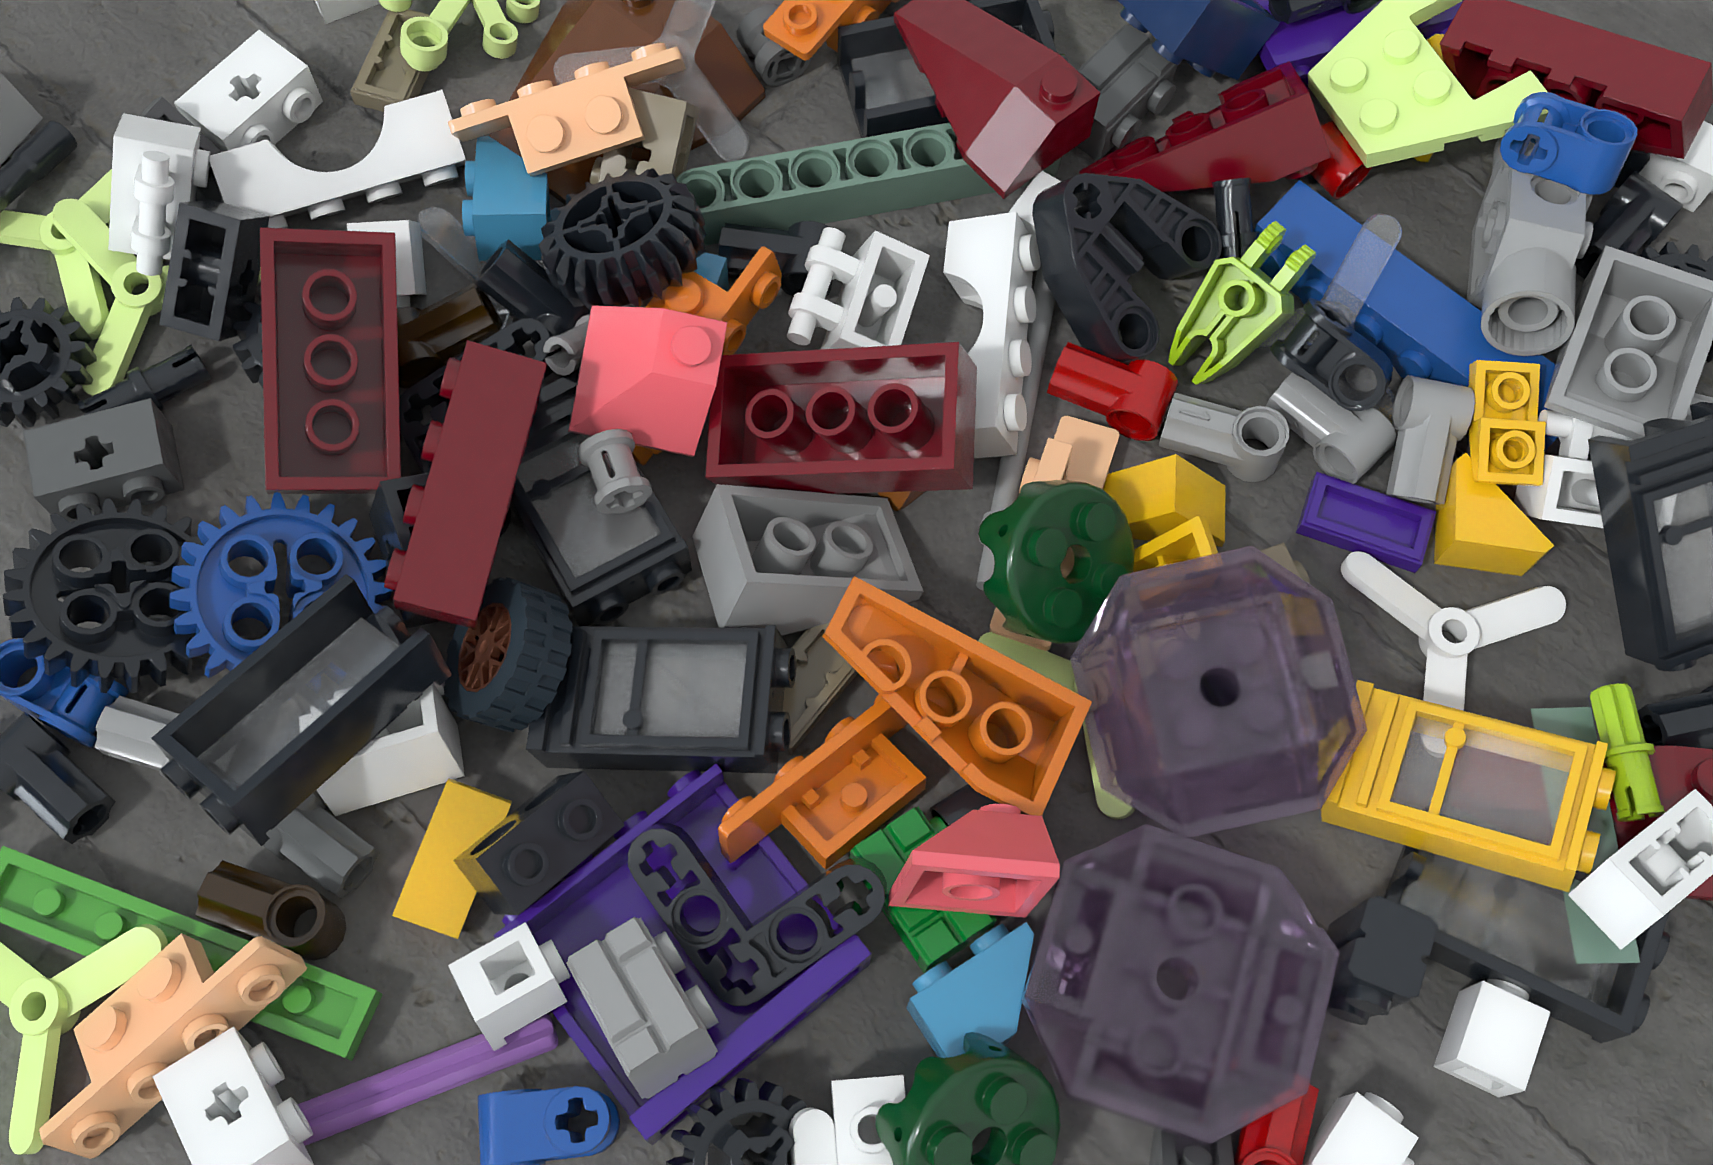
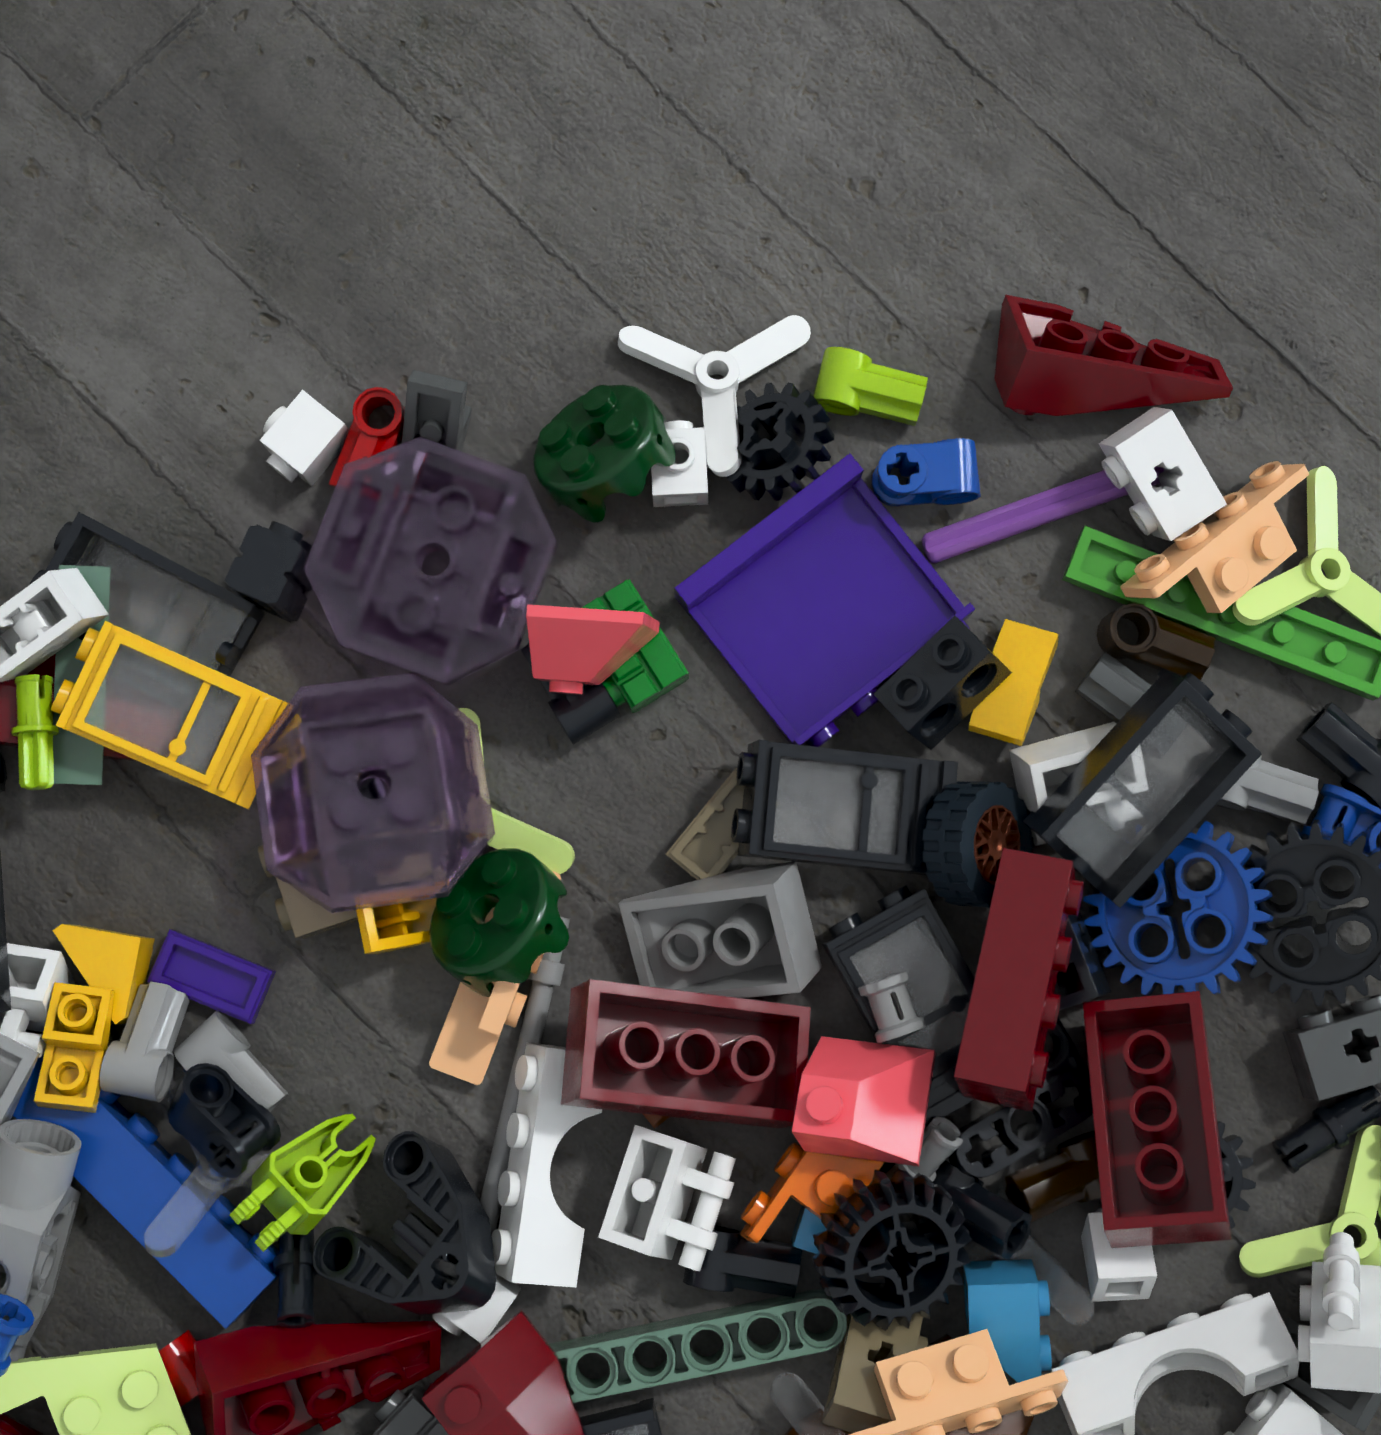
camera: 175 degrees left, 15 degrees up
(212, 268) = (1279, 1237): black brick -> none
(510, 983) = (977, 575): white brick -> none
(642, 1006) = (853, 548): light grey brick -> none
(757, 939) = (766, 605): black beam -> none
(833, 793) = (689, 730): orange bracket -> none
(970, 703) = (584, 782): orange wedge -> none
(977, 995) = (593, 558): dark azure slope -> none
(1128, 395) = (418, 1104): red piece -> none
(1167, 494) = (394, 993): yellow slope -> none
(1220, 432) = (339, 1061): light grey piece -> none
(1471, 628) = (133, 870): white piece -> none
(1492, 1037) = (184, 520): white brick -> none

